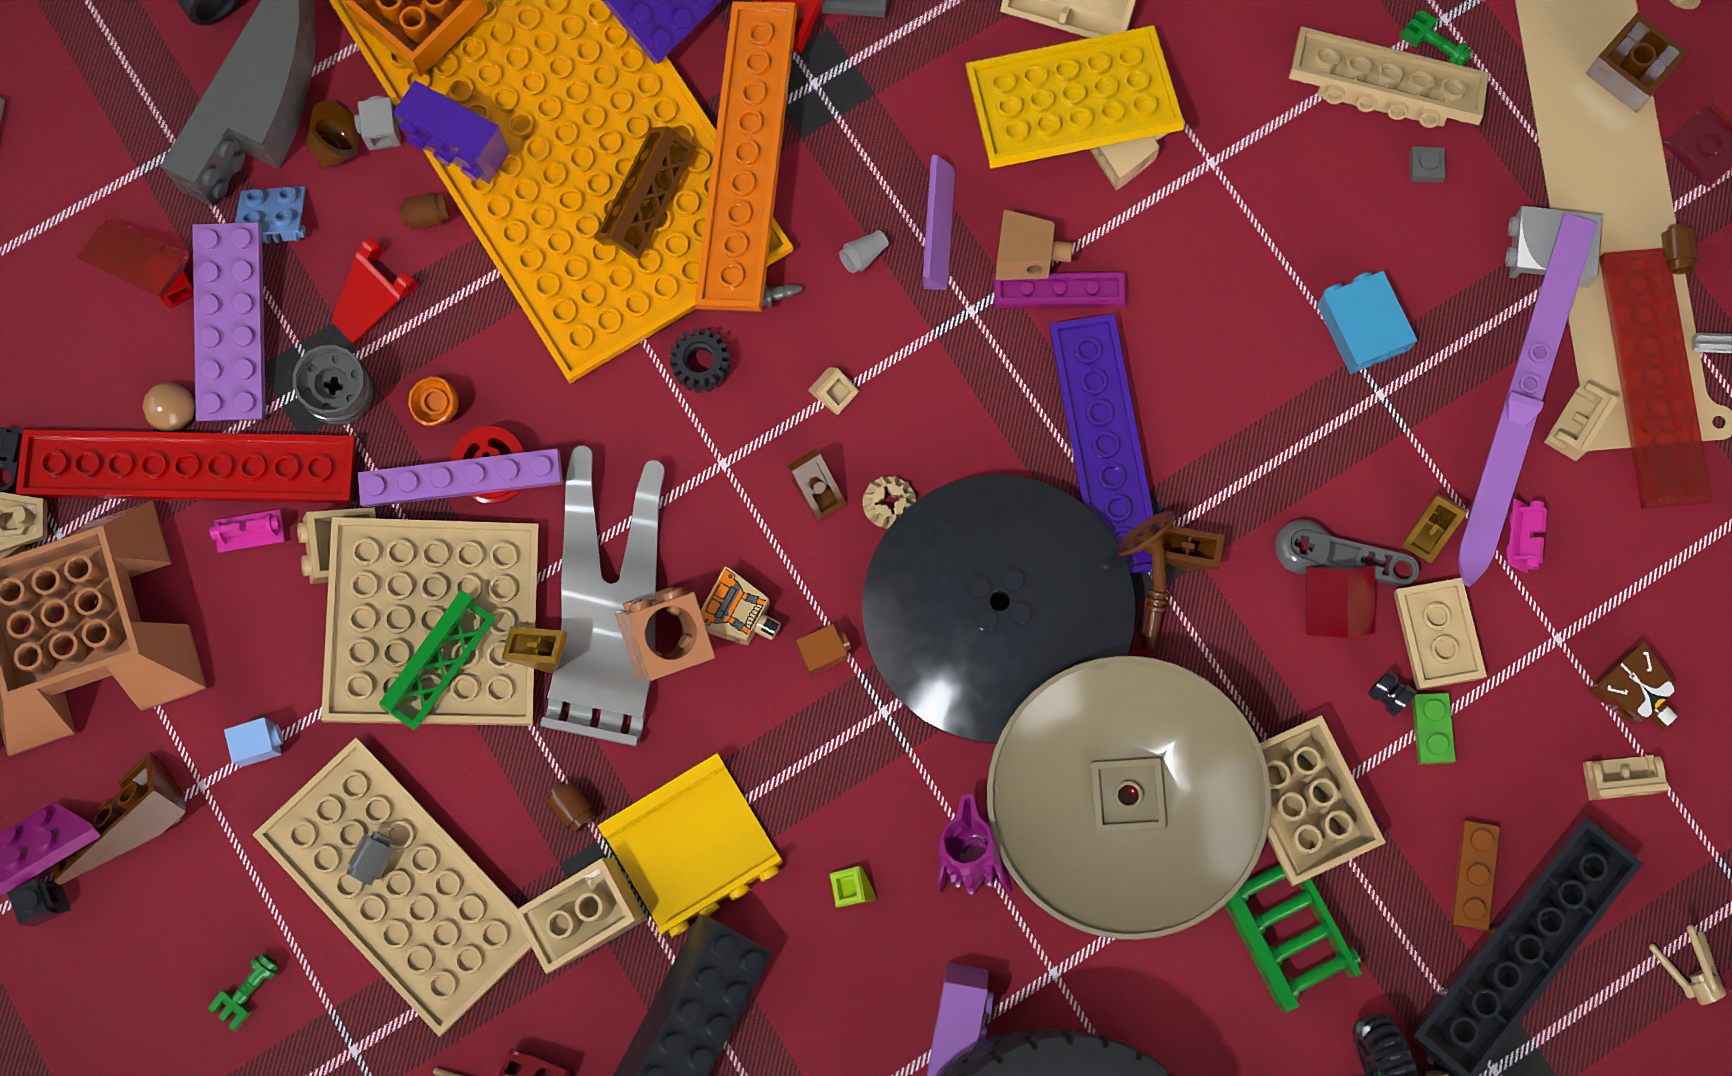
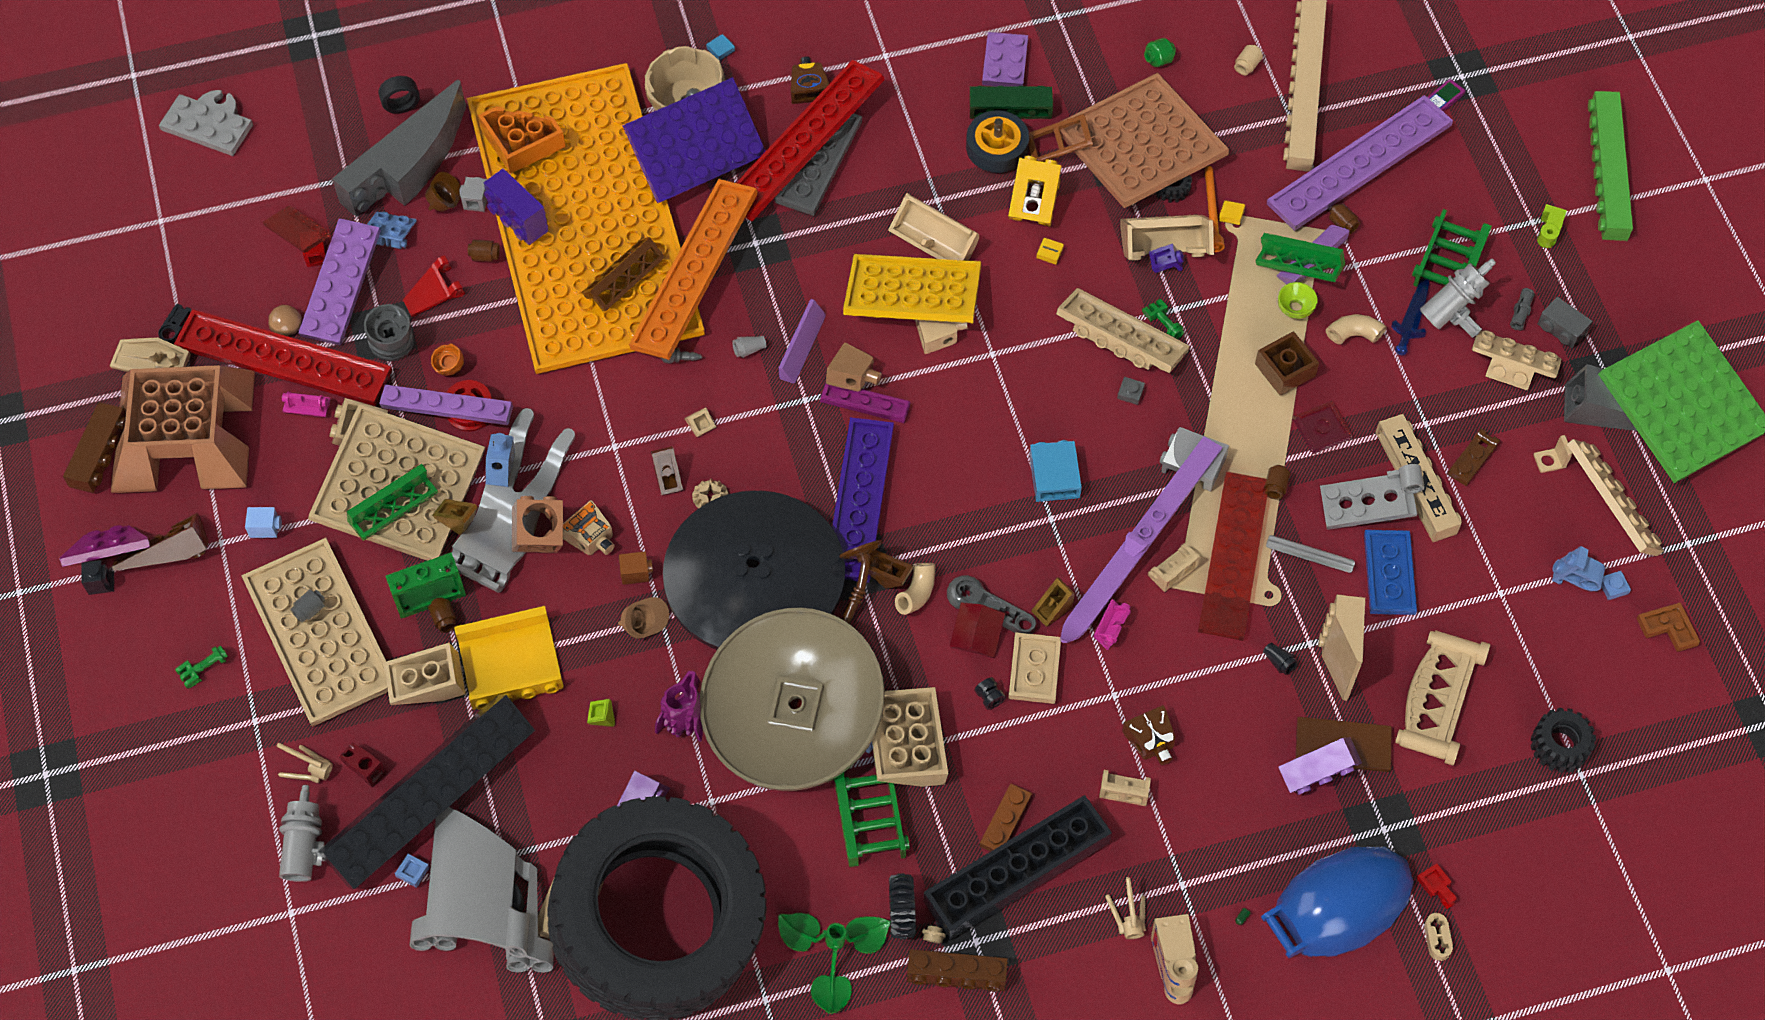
camera: 15 degrees right, 15 degrees down
(532, 775) = (424, 584): none -> green window
(571, 540) = (500, 450): none -> medium blue torso
(692, 343) = (622, 392): black tyre -> none
(864, 726) = (645, 617): none -> medium nougat piece
(1237, 562) = (919, 589): none -> tan cylinder
(1433, 729) = (1010, 724): bright green plate -> none

